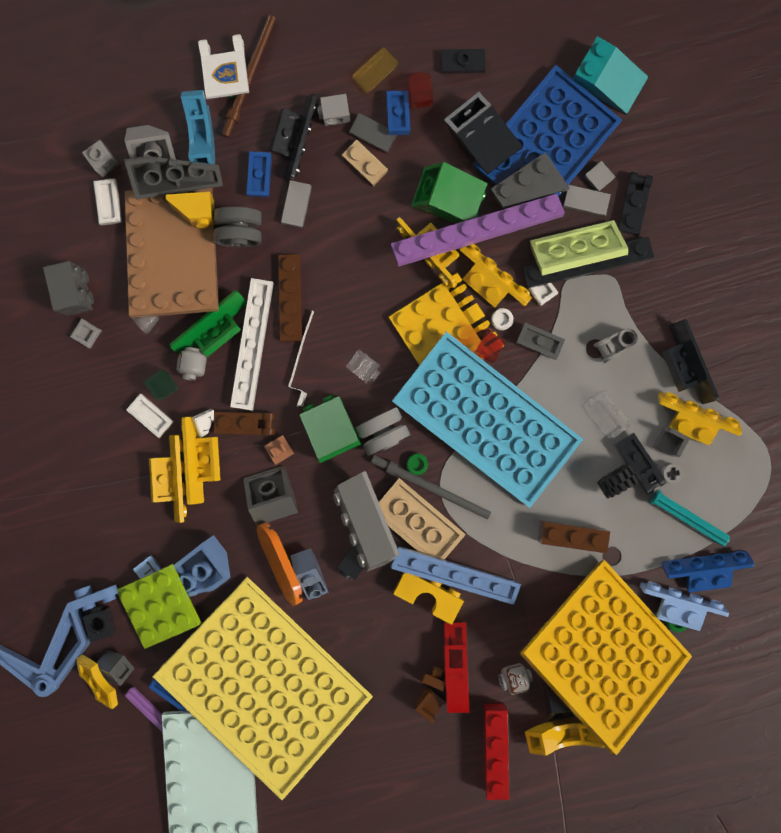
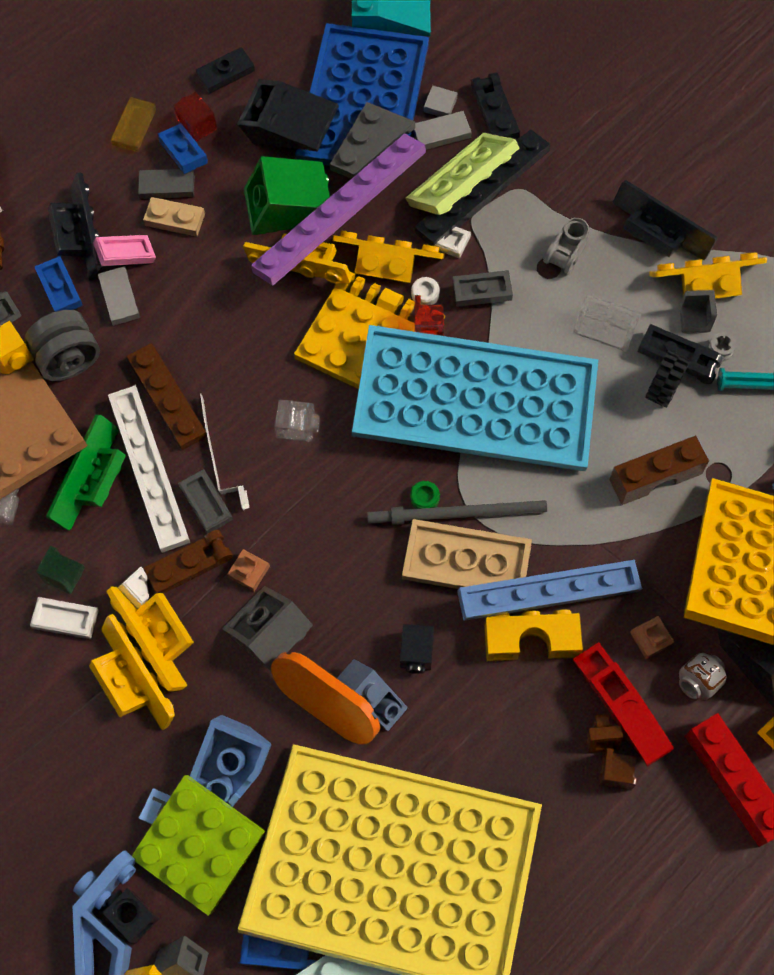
camera: 25 degrees left, 20 degrees down
(191, 363) = (85, 525): light grey head -> none
(277, 387) = (205, 501): none -> dark grey tile
(316, 173) = (124, 250): none -> bright pink tile
(329, 428) = (298, 507): green slope -> none
(334, 109) = (109, 180): light grey brick -> none
(365, 522) = (404, 581): light grey slope -> none
(382, 431) = (360, 472): light grey wheel -> none
(501, 635) = (652, 637): none -> nougat tile

